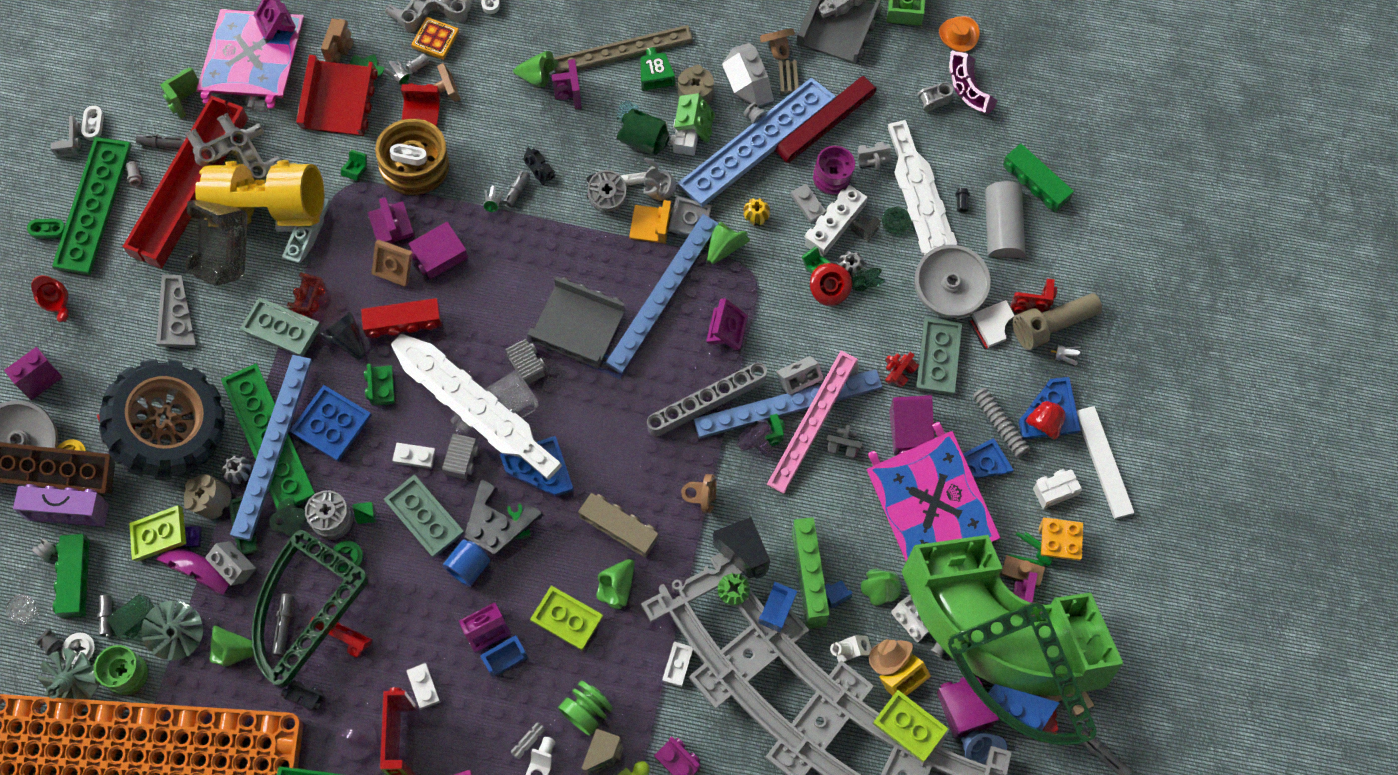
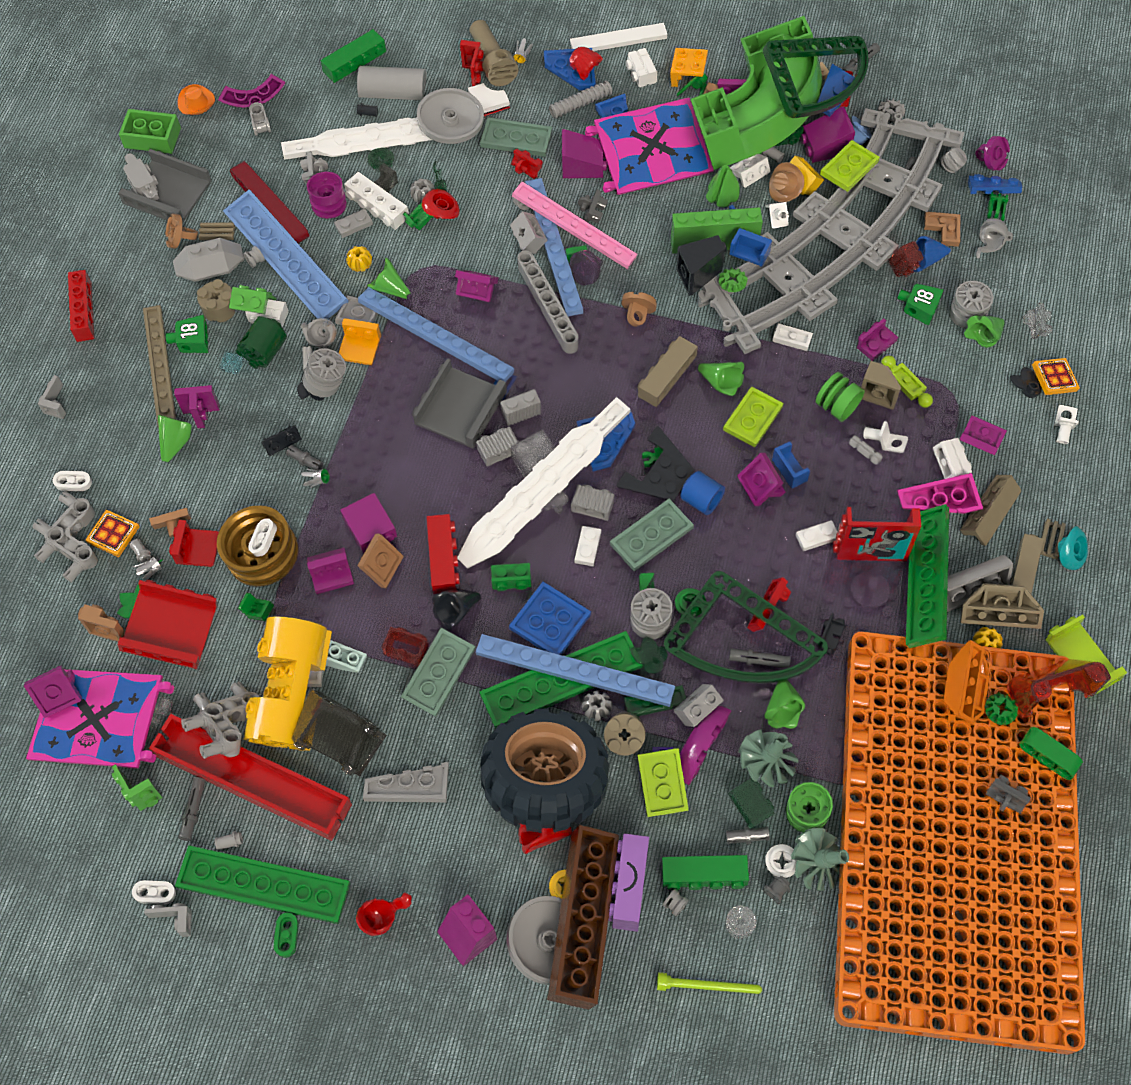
camera: 85 degrees left, 5 degrees down
(571, 380) = (521, 407): none -> light grey brick

